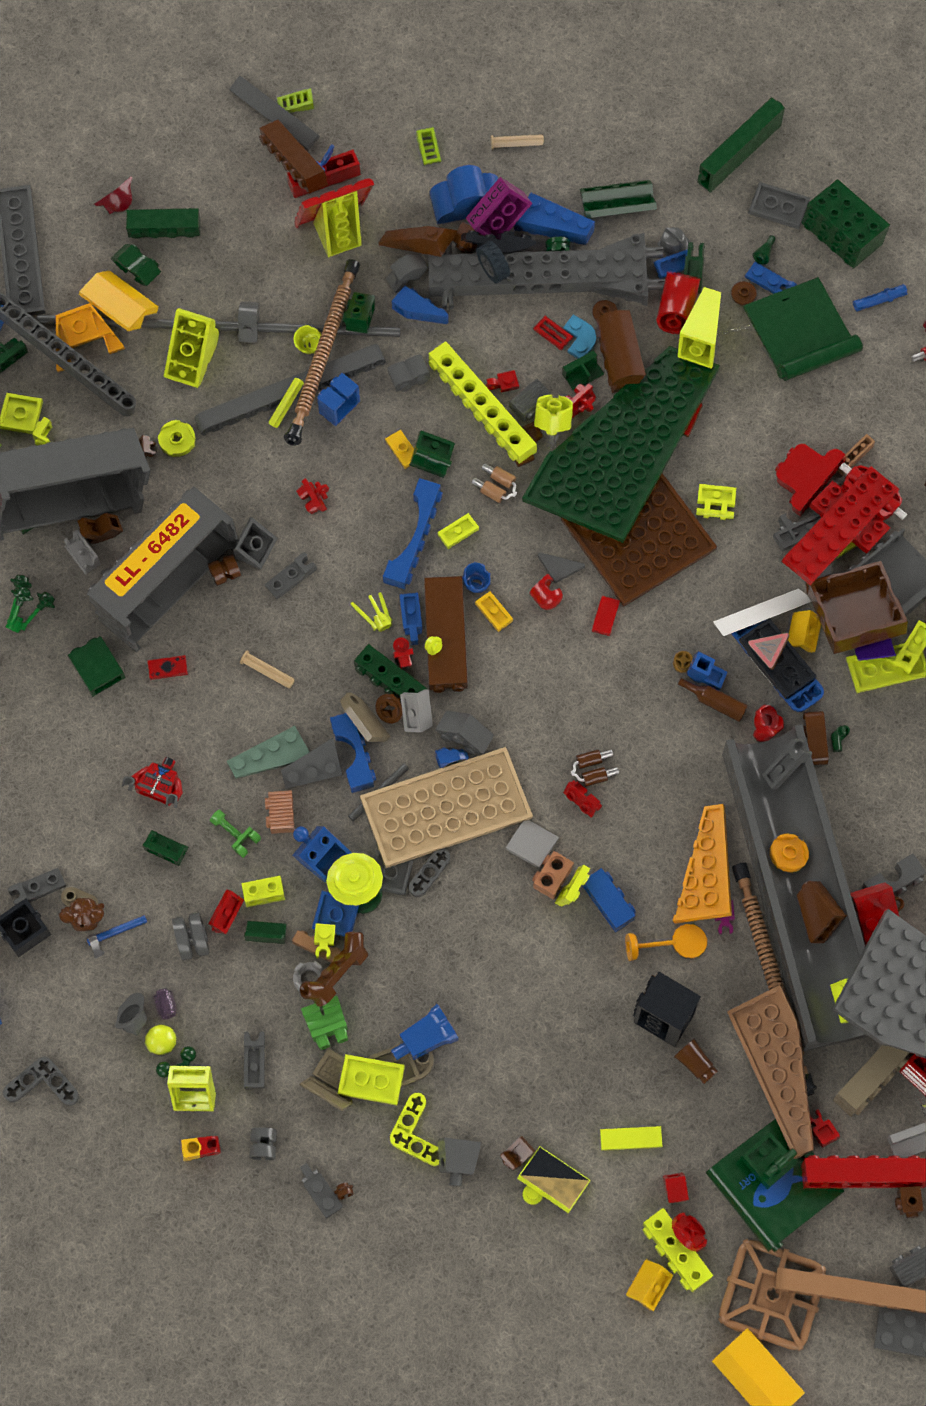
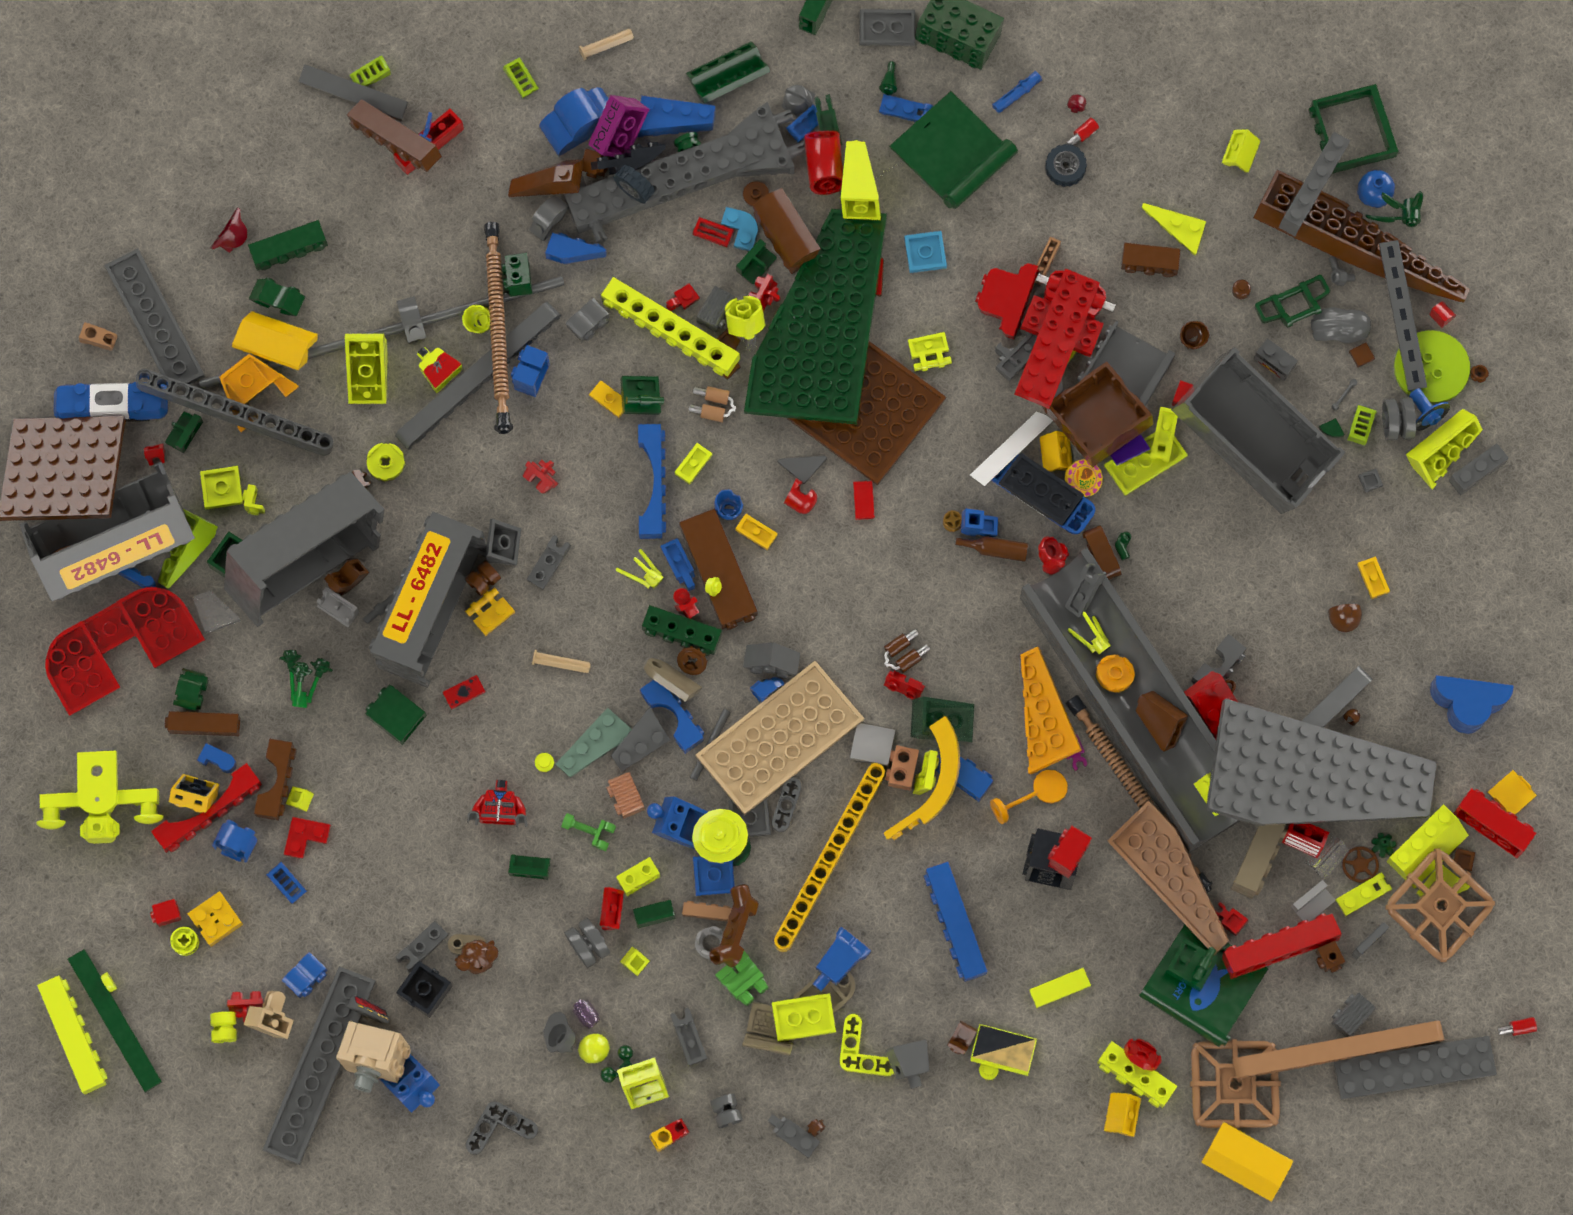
camera: 20 degrees left, 5 degrees up
(94, 939) = (495, 976): blue piece -> none
(216, 756) = (544, 762): none -> neon yellow plate
(222, 607) = (493, 616): none -> yellow plate
(231, 970) = (634, 961): none -> neon yellow slope
(257, 371) = (438, 367): none -> torso
(286, 402) = (480, 391): neon yellow axle -> none
(324, 937) = (712, 900): neon yellow plate -> none
(336, 216) = (464, 189): neon yellow piece -> none
(416, 711) = (719, 655): light grey panel -> none
(448, 944) = (833, 848): none -> yellow beam
(551, 1045) = (956, 922): none -> blue brick
(588, 902) = (946, 783): none -> yellow arch
(607, 842) = (930, 710): none -> clear green slope
(675, 1187) = (1116, 1018): red brick -> none
(681, 1003) = (1070, 851): none -> red brick
(696, 1061) = (1095, 896): reddish brown plant -> none
(743, 293) = (883, 130): reddish brown piece -> none
(744, 411) = (925, 252): none -> dark azure plate
(769, 648) = (1031, 483): piece -> none
(784, 819) = (1100, 643): none -> neon yellow plant
(823, 662) = (1084, 477): none -> yellow tile
(910, 368) = (1074, 159): none -> black wheel

